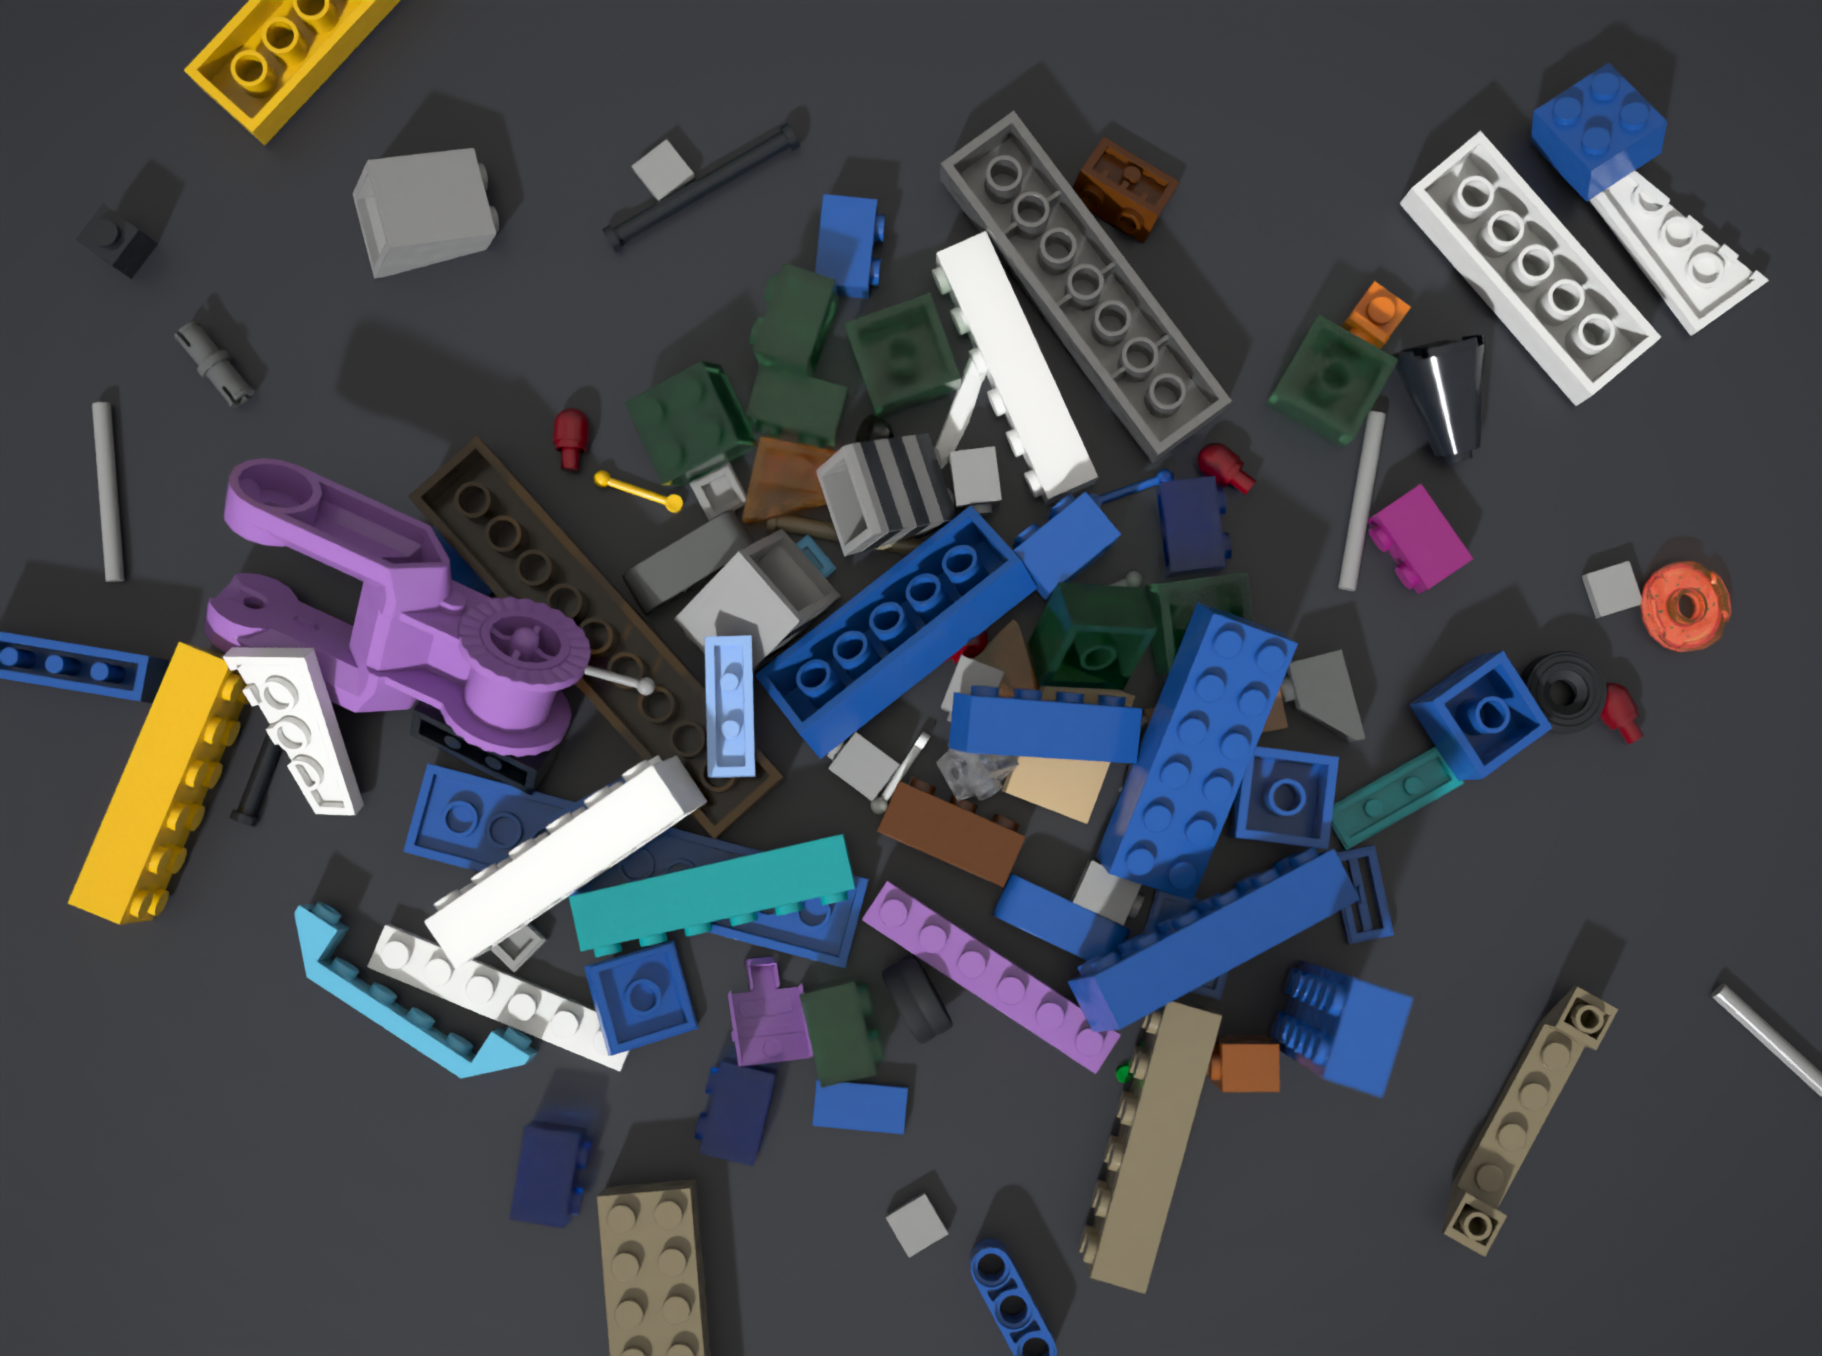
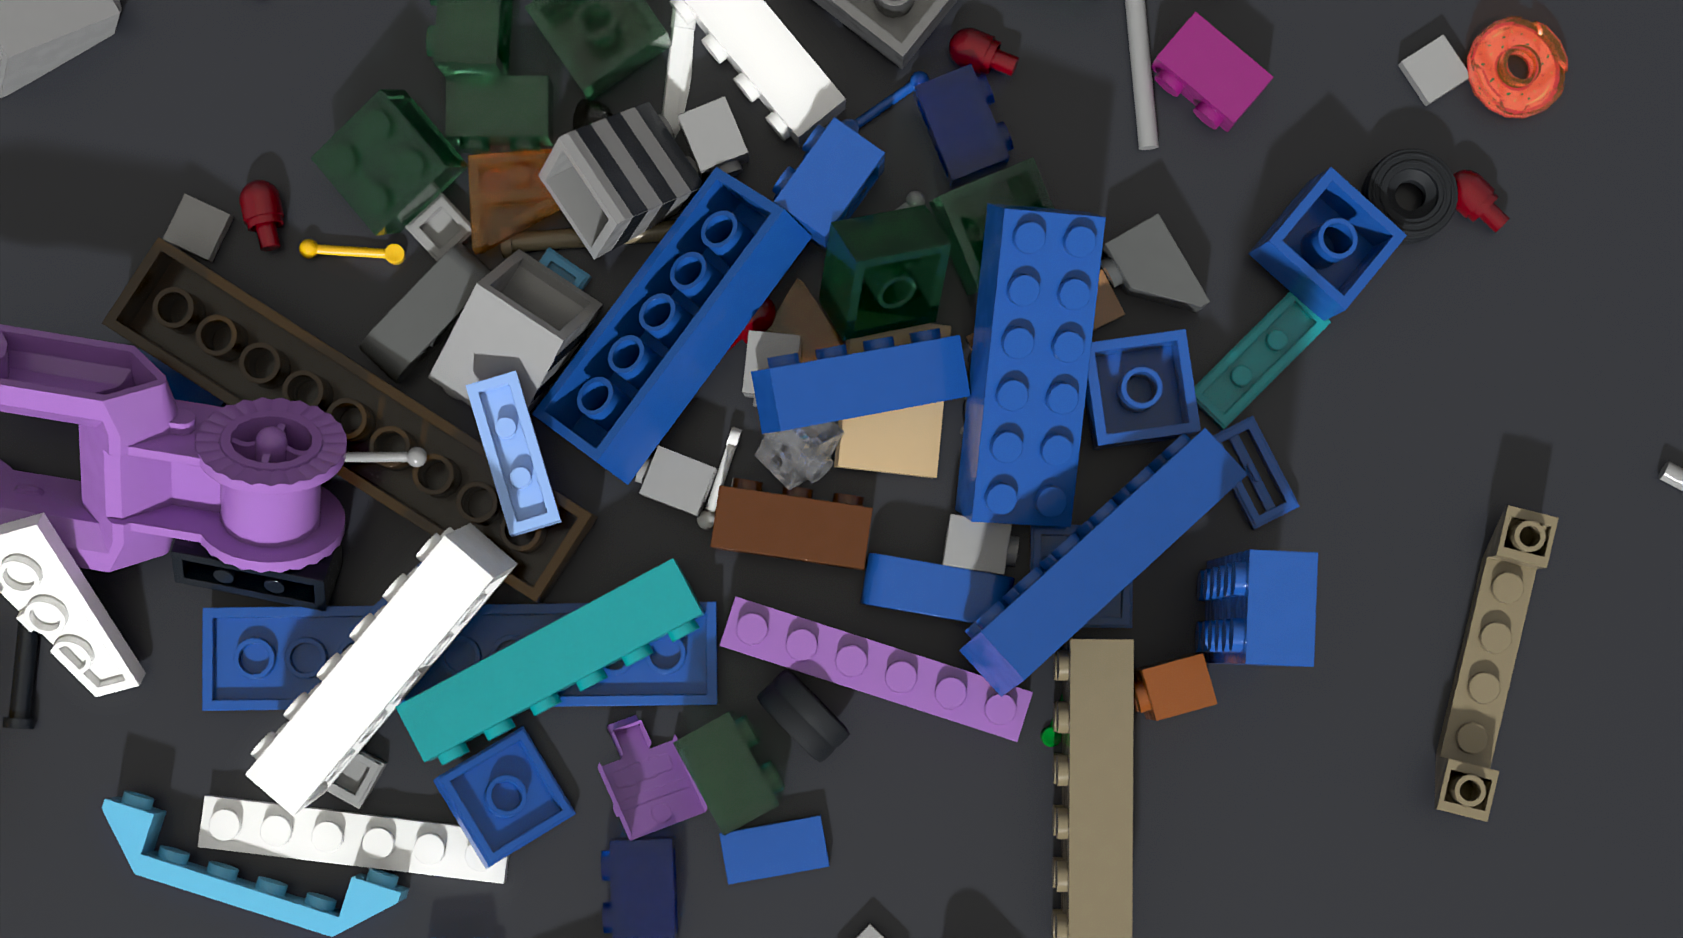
camera: 15 degrees left, 0 degrees up
(512, 435) = (198, 228): none -> light grey tile

